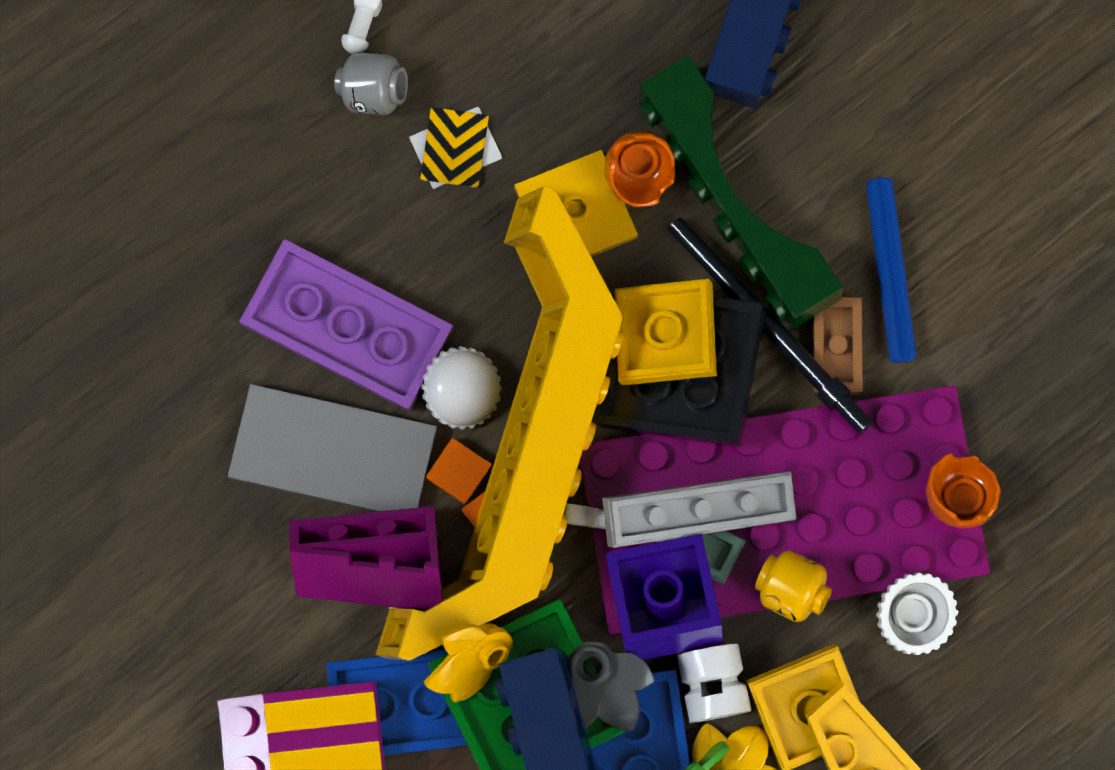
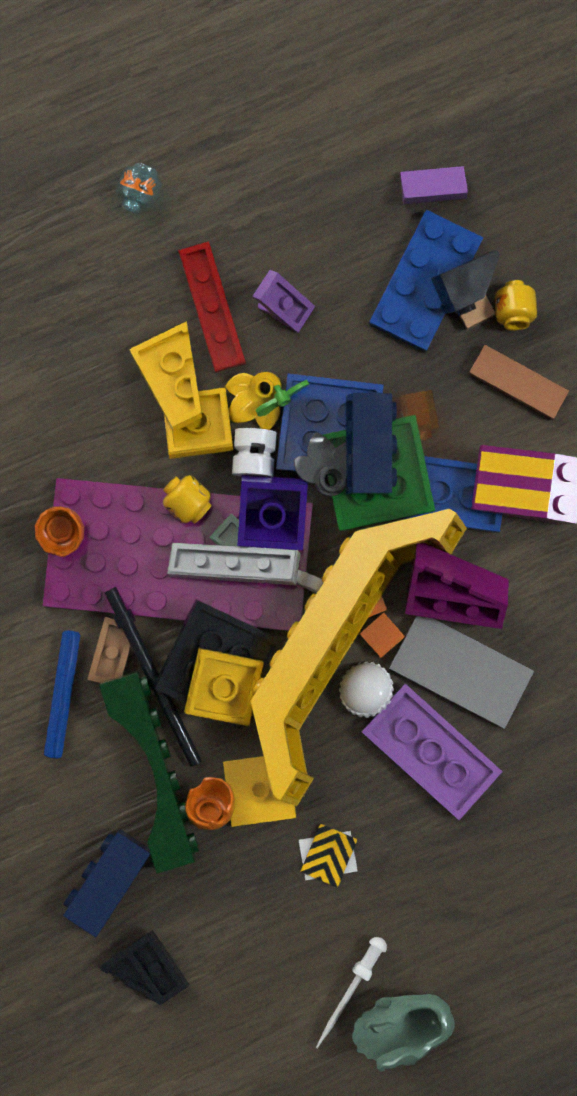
camera: 160 degrees left, 5 degrees up
(371, 83) = (374, 912): light grey head -> none
(471, 659) = (409, 501): yellow plate -> none
(917, 613) = (111, 463): white hat -> none

